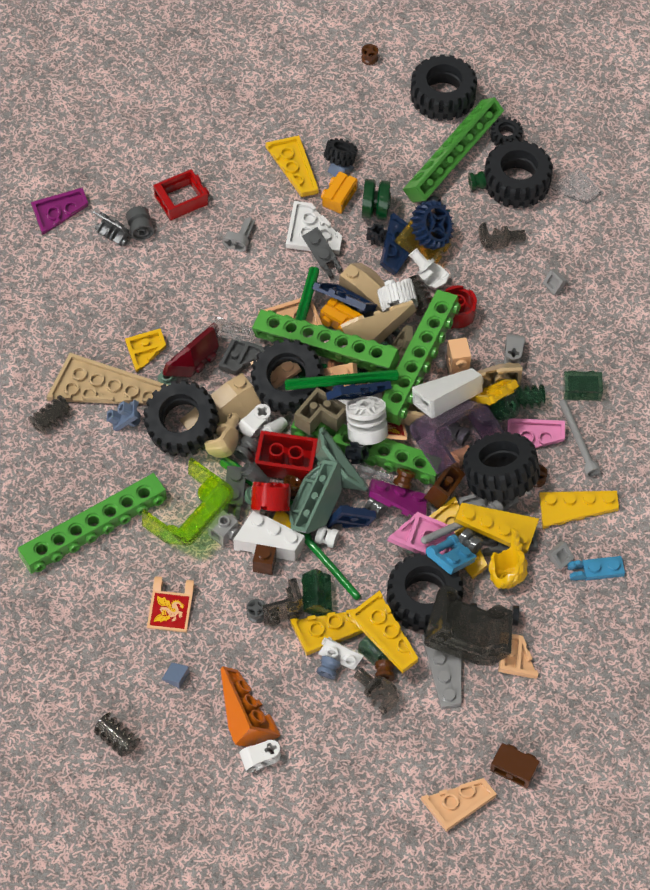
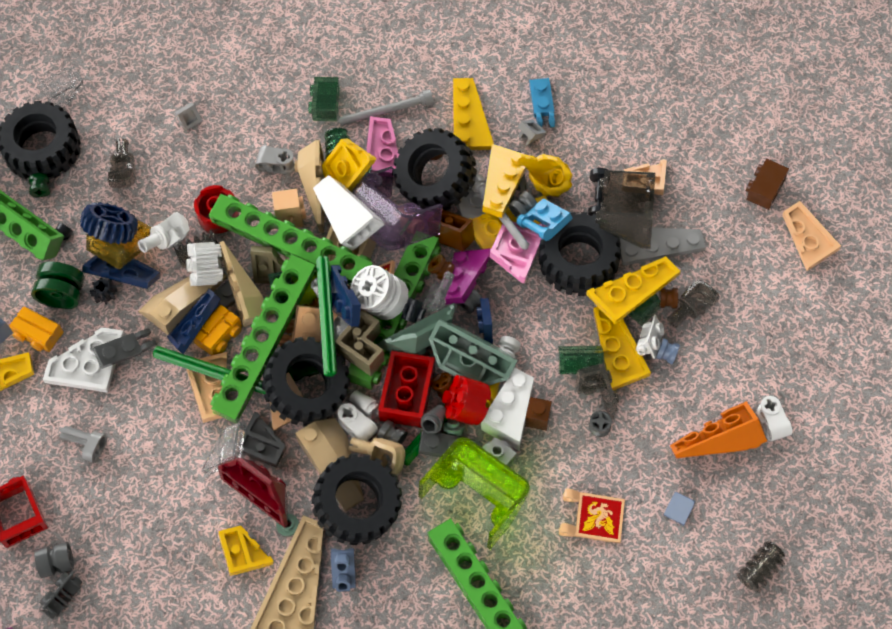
camera: 85 degrees left, 5 degrees up
(330, 566) = (546, 346): green piece -> none

